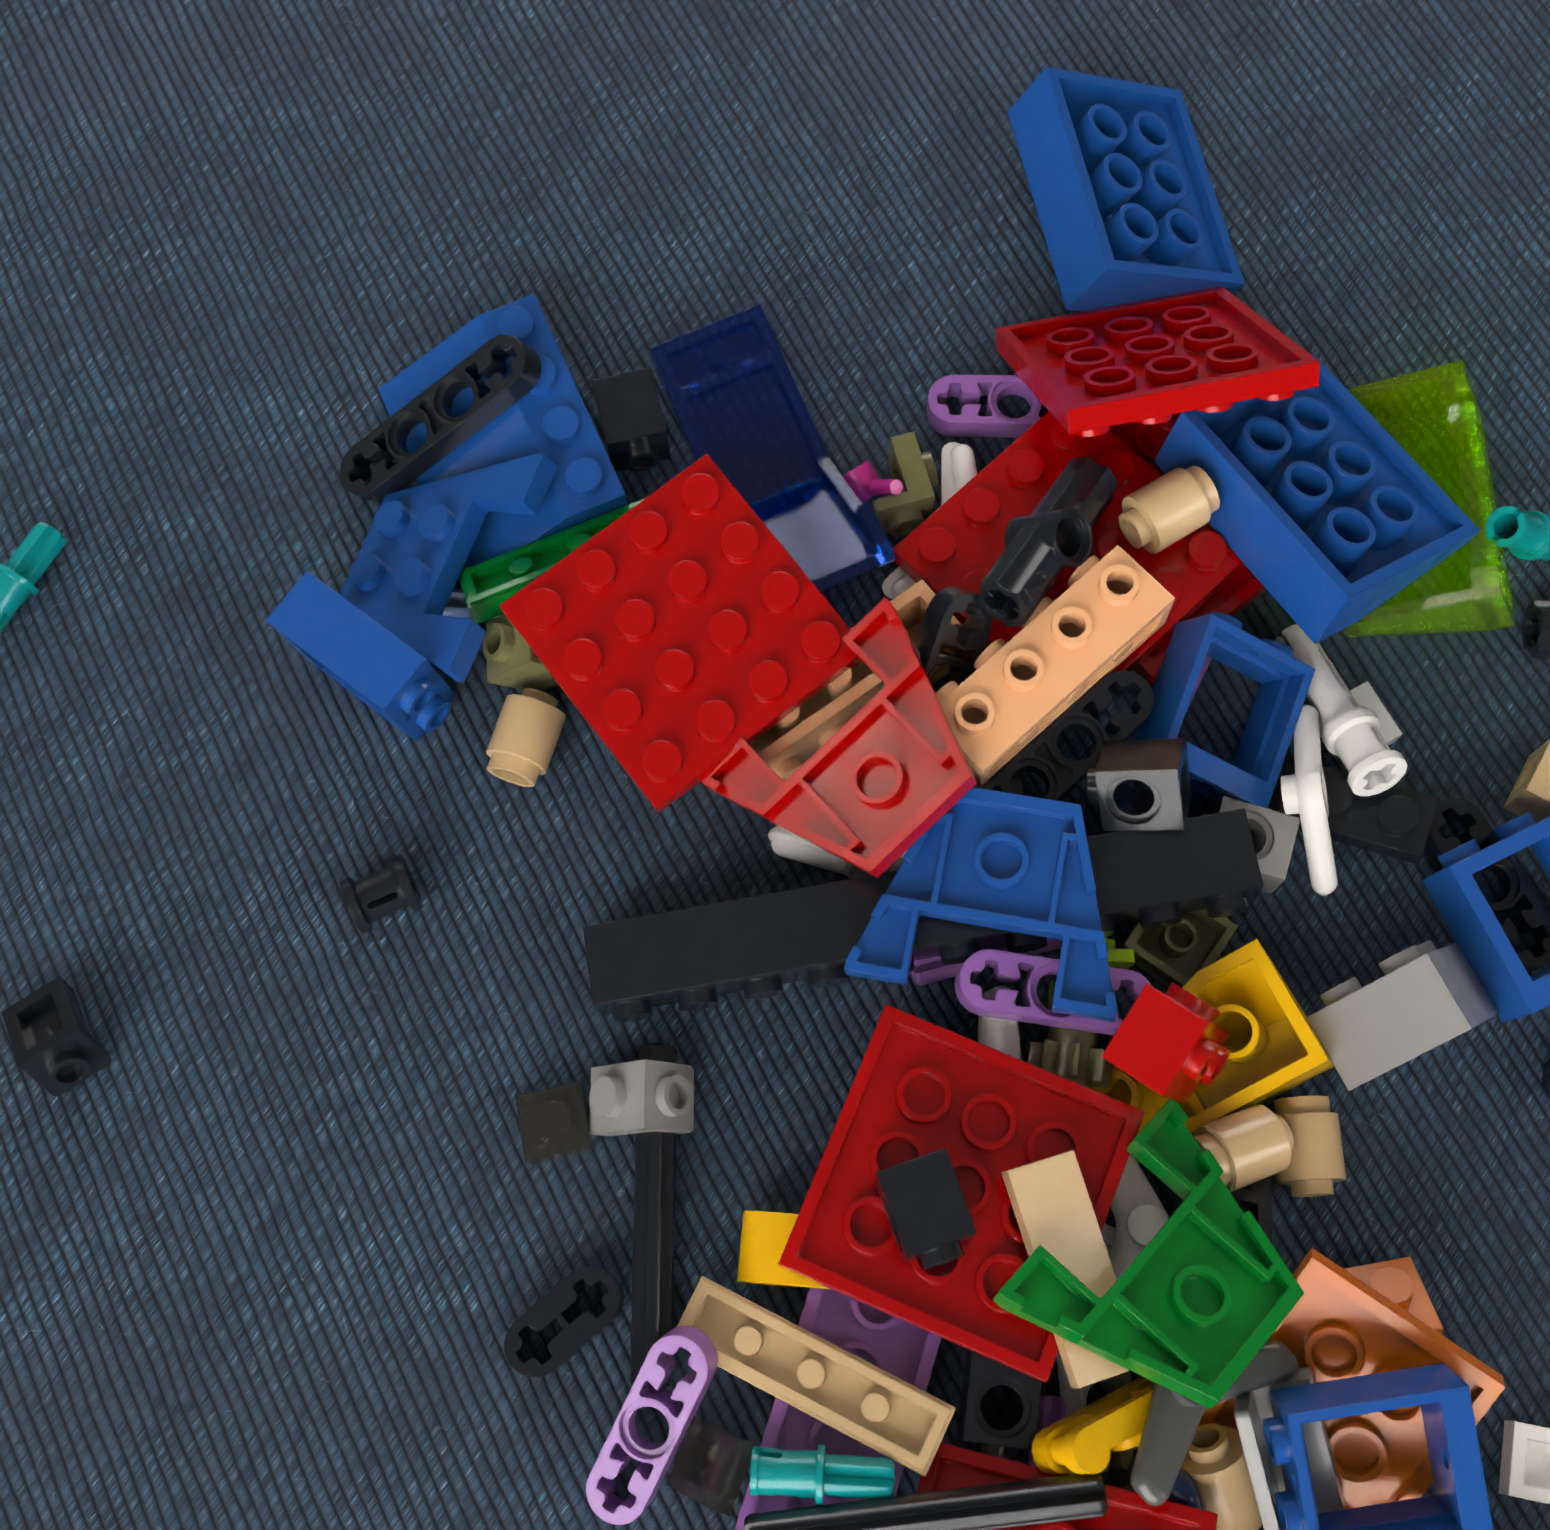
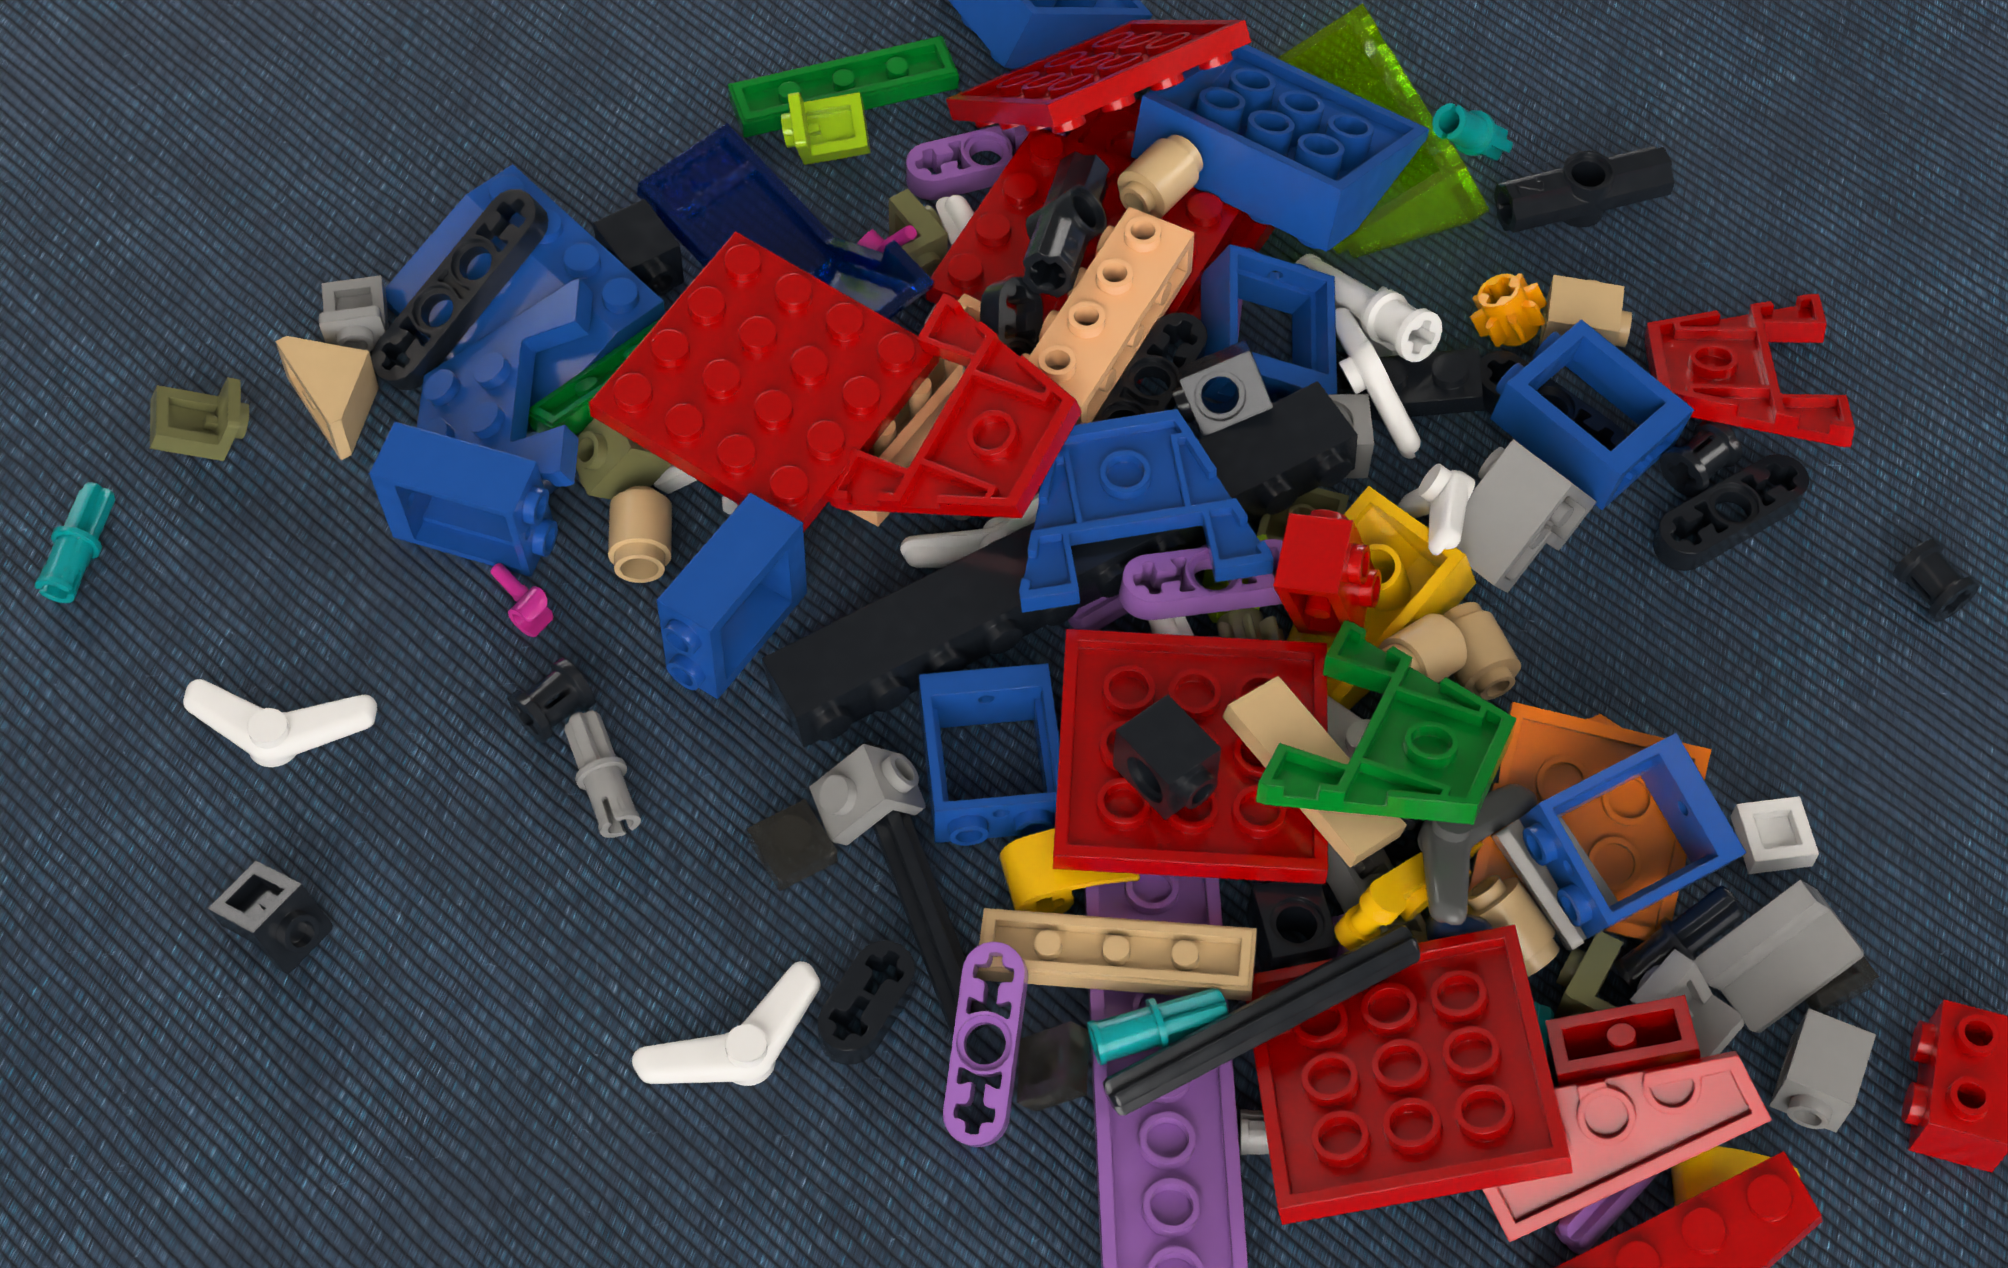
camera: 25 degrees left, 15 degrees down
(129, 843) = (274, 735): none -> white piece
(160, 483) = (197, 421): none -> olive bracket
(295, 487) = (333, 385): none -> tan slope
(341, 410) = (354, 312): none -> light grey bracket
(399, 785) = (531, 610): none -> dark pink hand
(401, 988) = (601, 774): none -> light grey axle
(436, 1332) = (744, 1053): none -> white piece
(577, 848) = (732, 596): none -> blue window
(782, 1030) = (989, 698): none -> blue window
(862, 328) = (826, 127): none -> lime bracket
(902, 280) = (878, 75): none -> green tile
(1335, 979) = (1445, 498): none -> white piece
(1490, 755) = (1508, 310): none -> light orange gear

